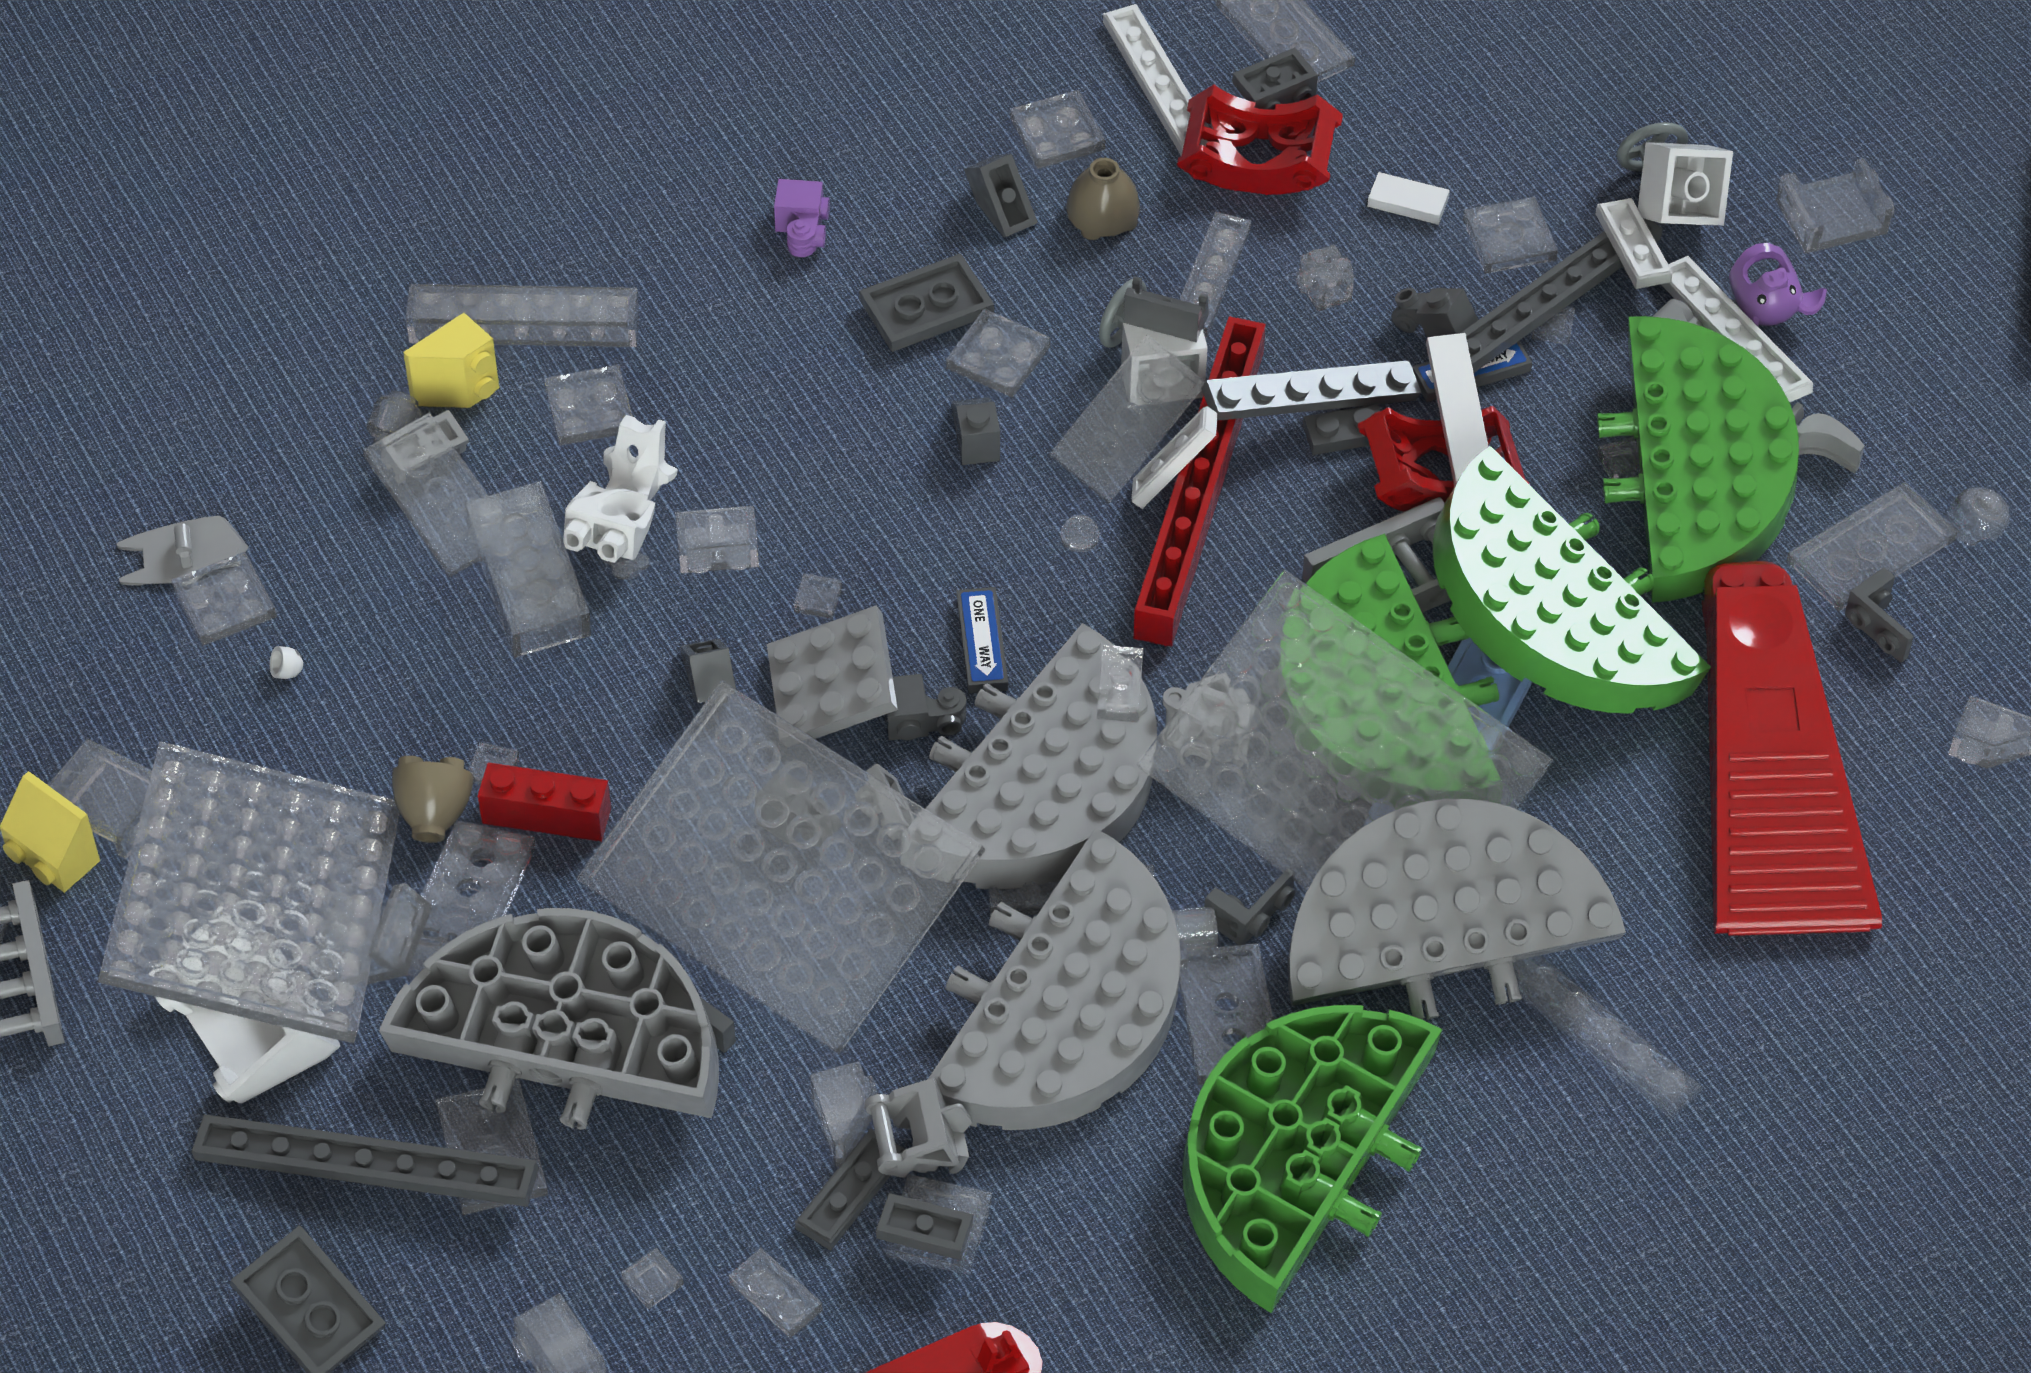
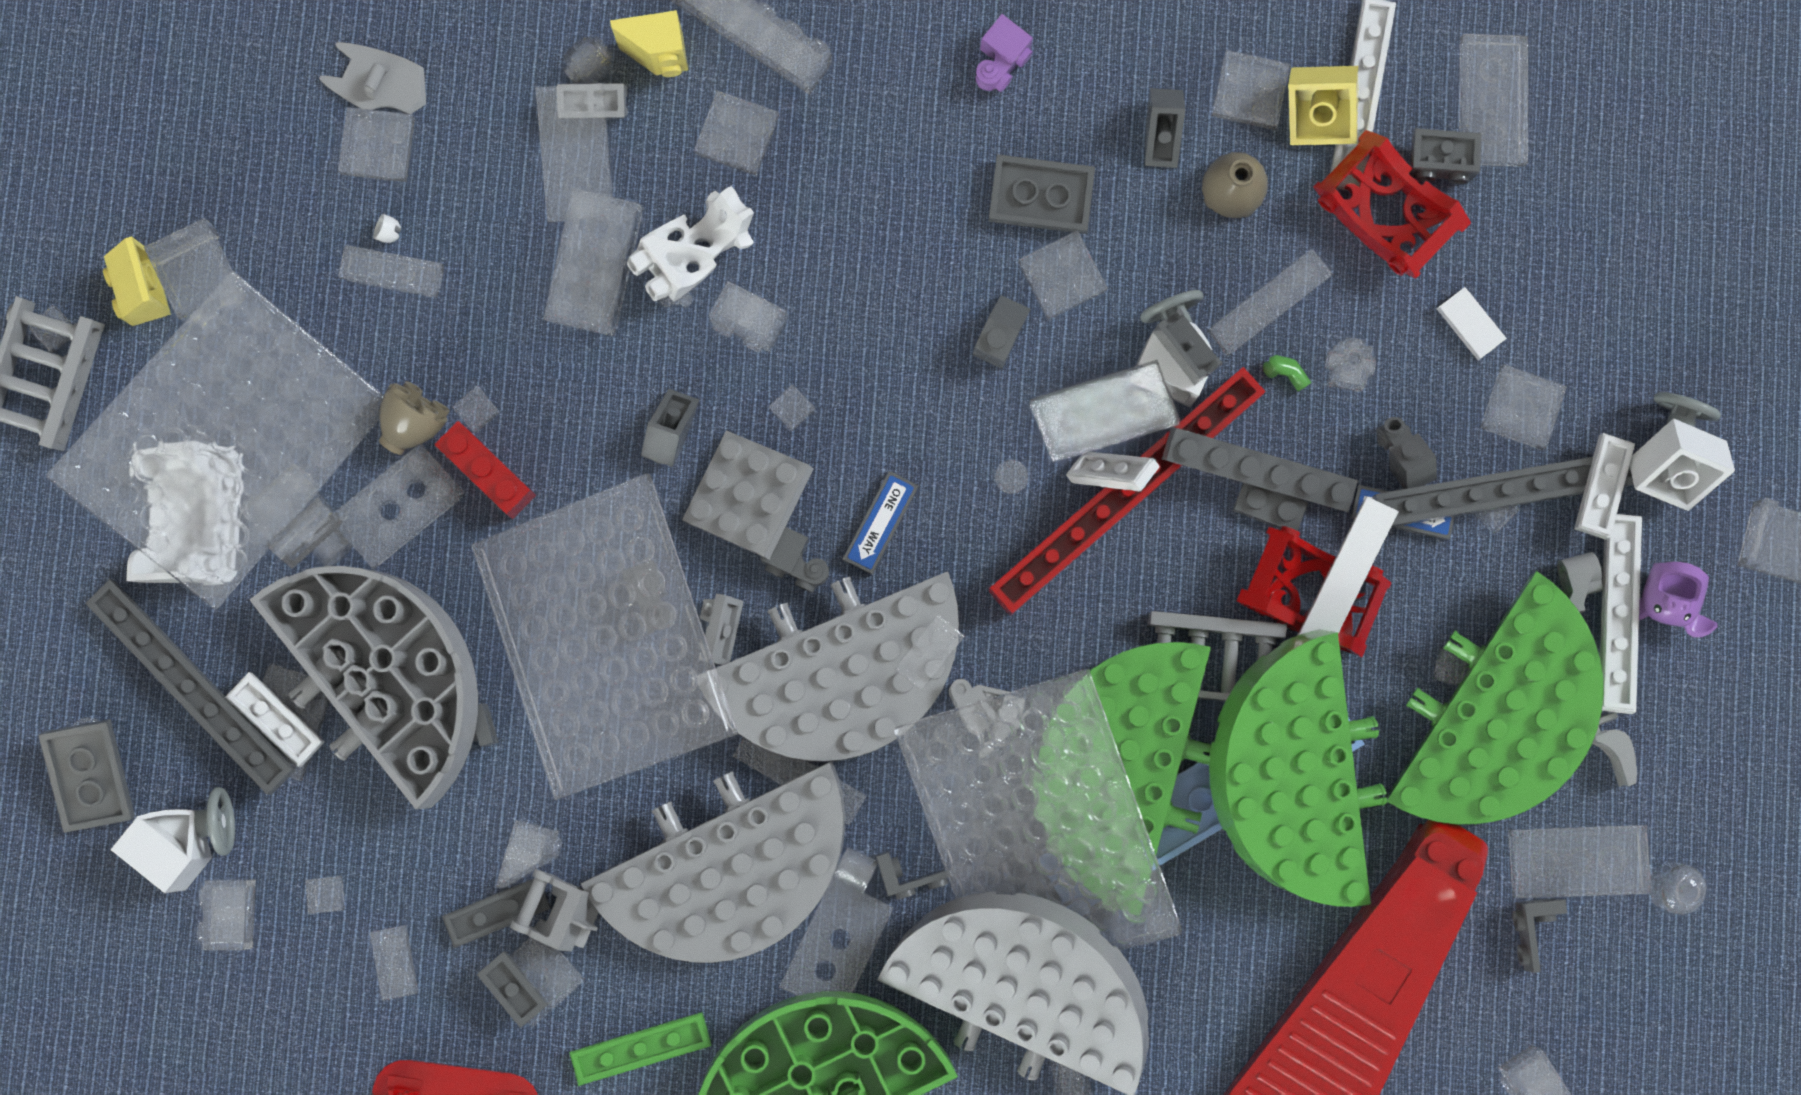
camera: 30 degrees right, 30 degrees up
(315, 697) = (391, 271): none -> clear tile
(449, 1304) = (173, 844): none -> white piece
(482, 1135) = (274, 719): none -> white tile
(1098, 1224) = (640, 1048): none -> bright green tile
(1135, 102) = (1323, 105): none -> light yellow slope
(1275, 315) = (1287, 367): none -> bright green arm

